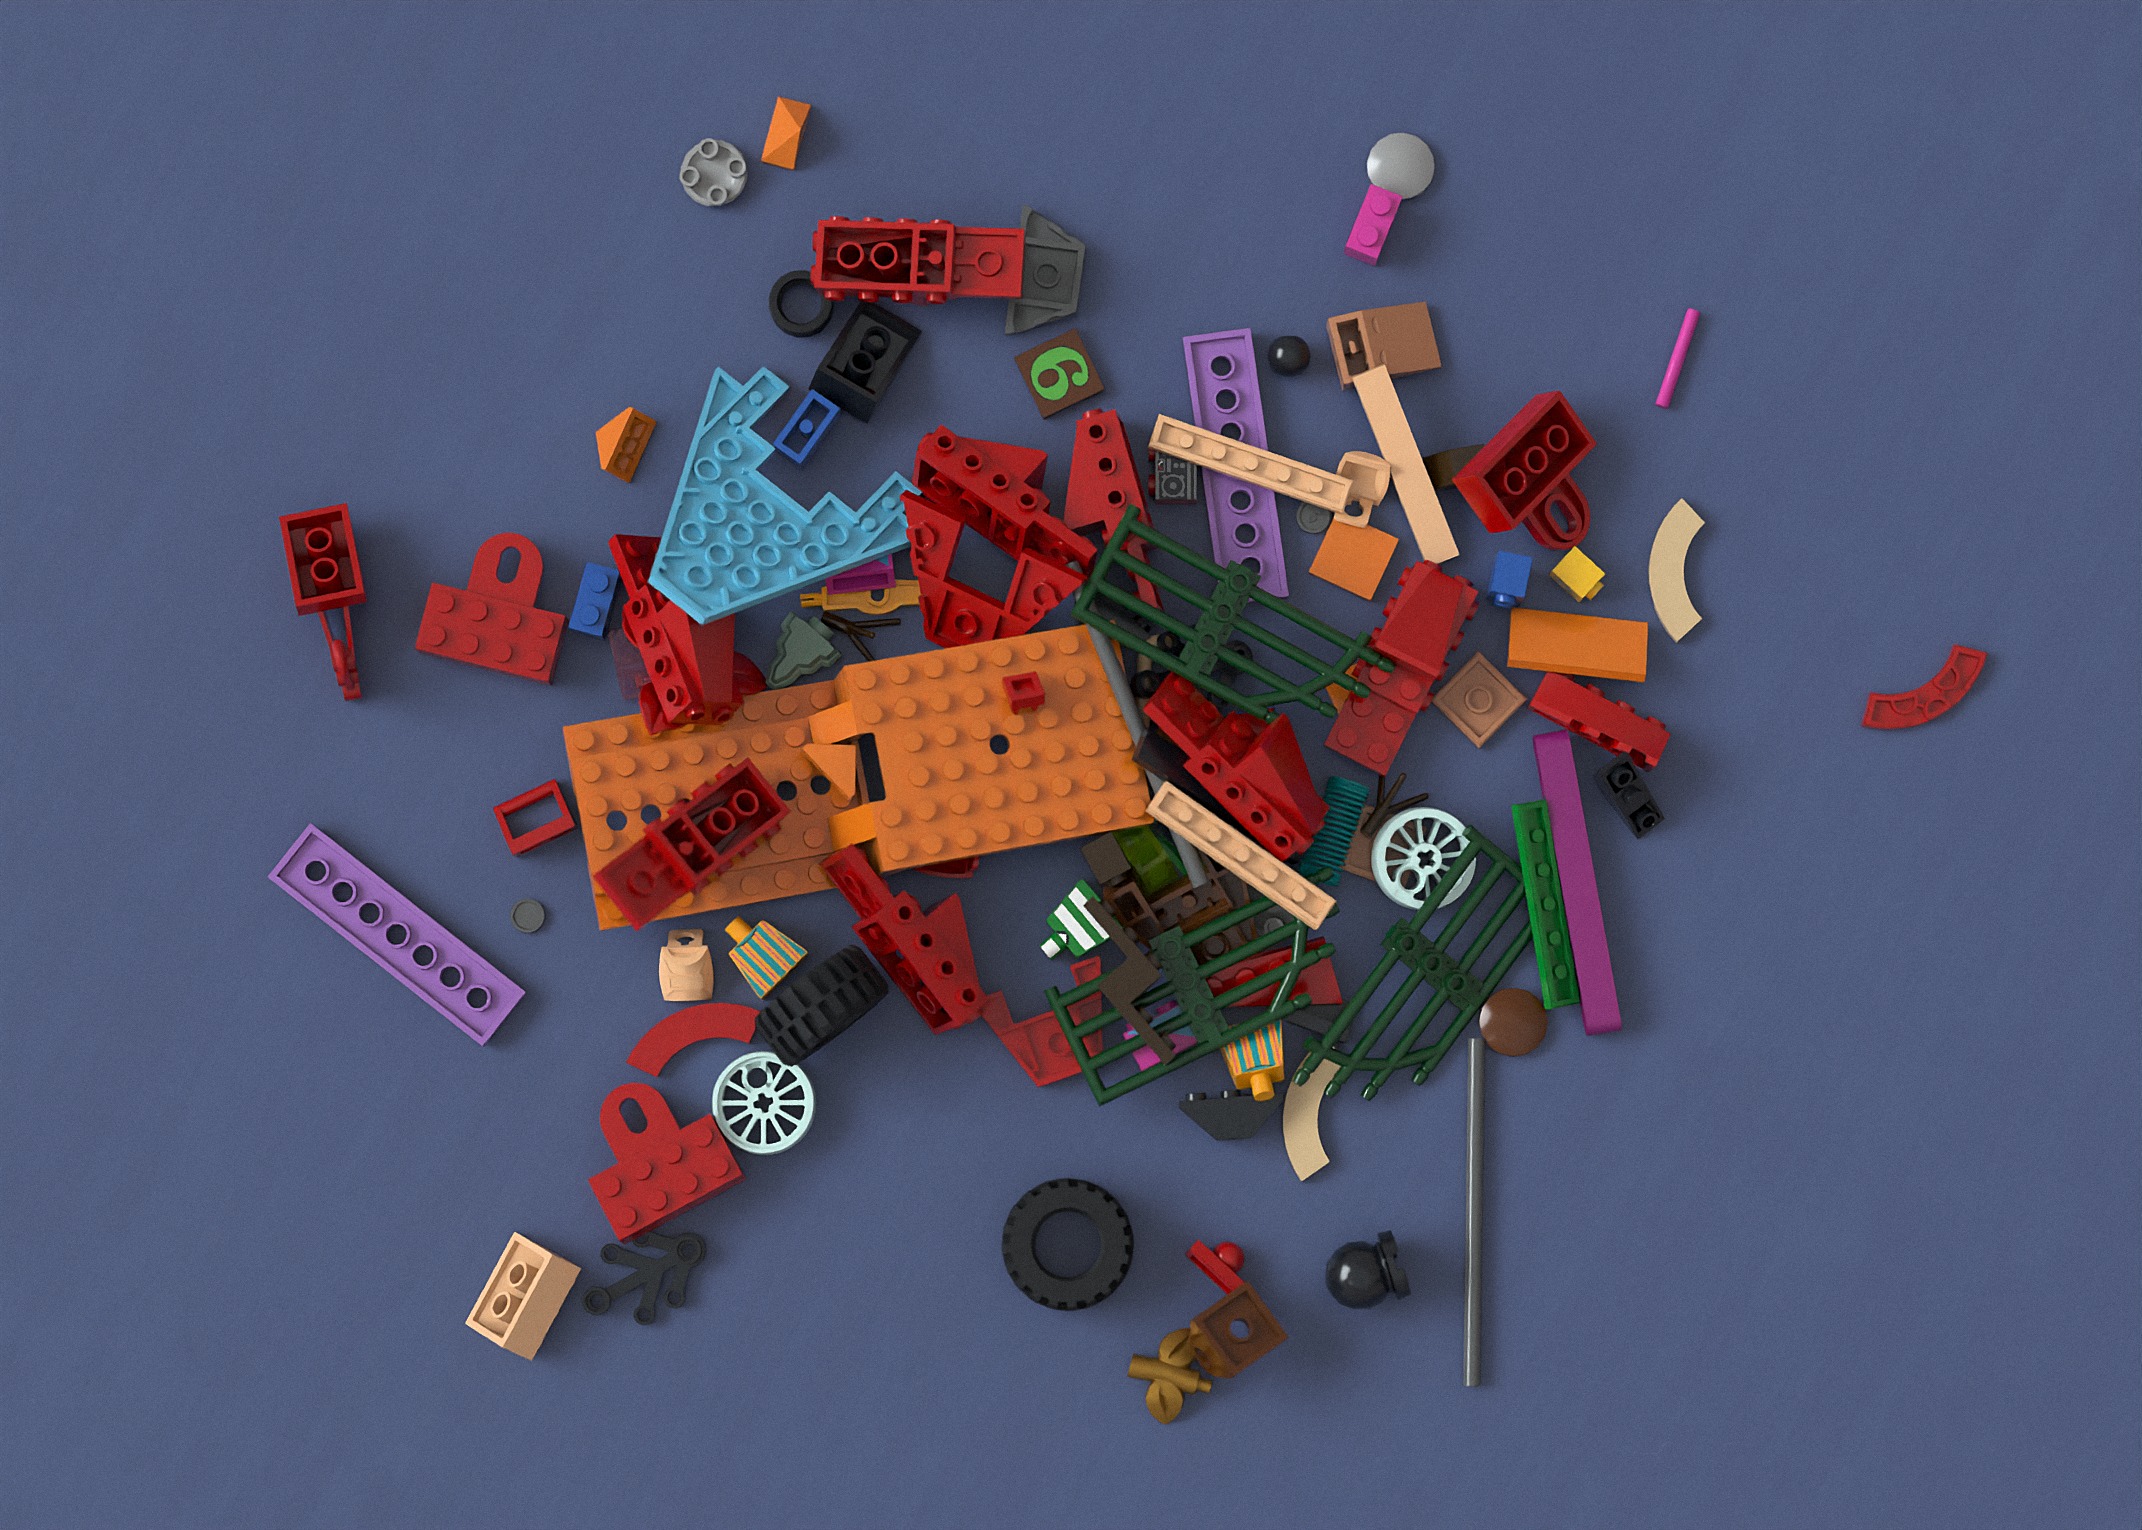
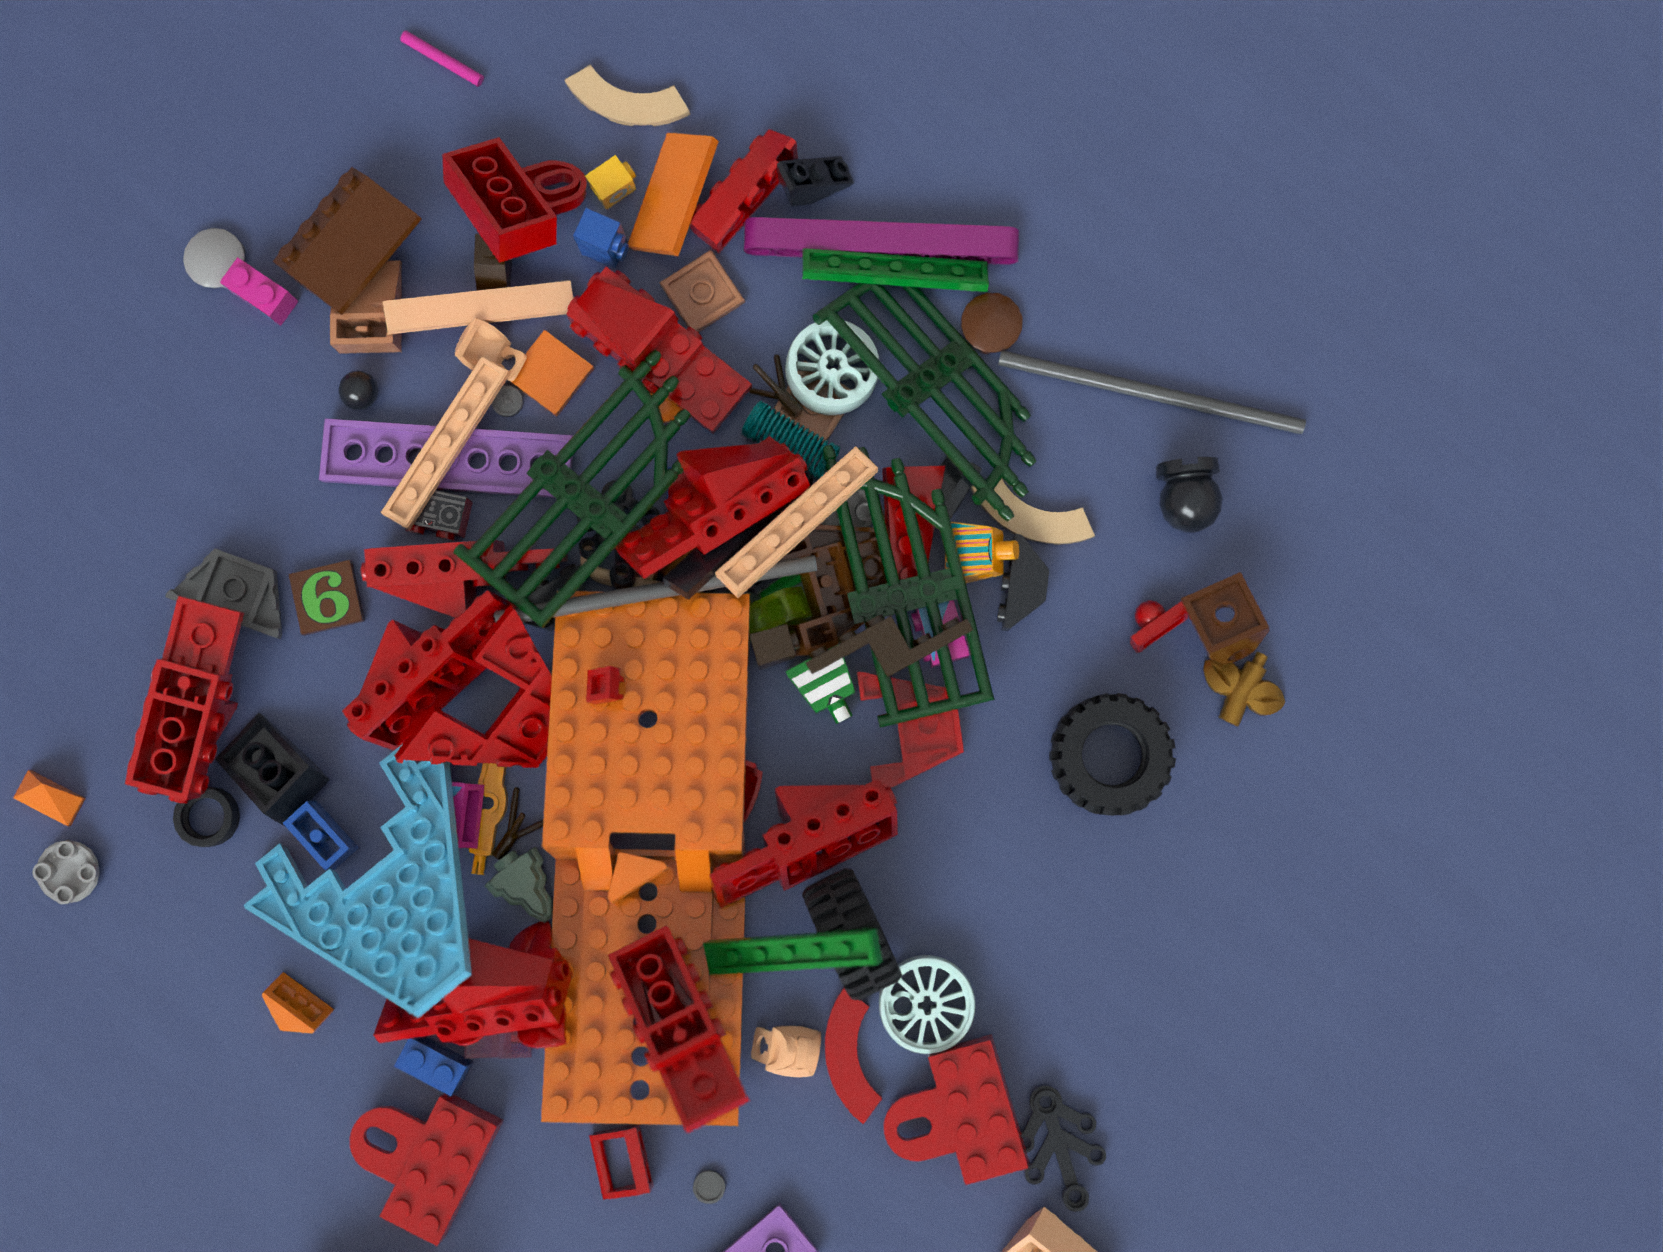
camera: 75 degrees left, 0 degrees up
(763, 954) = (791, 986): torso -> none
(791, 945) = (793, 951): none -> green tile
(1445, 309) = (346, 240): none -> reddish brown slope

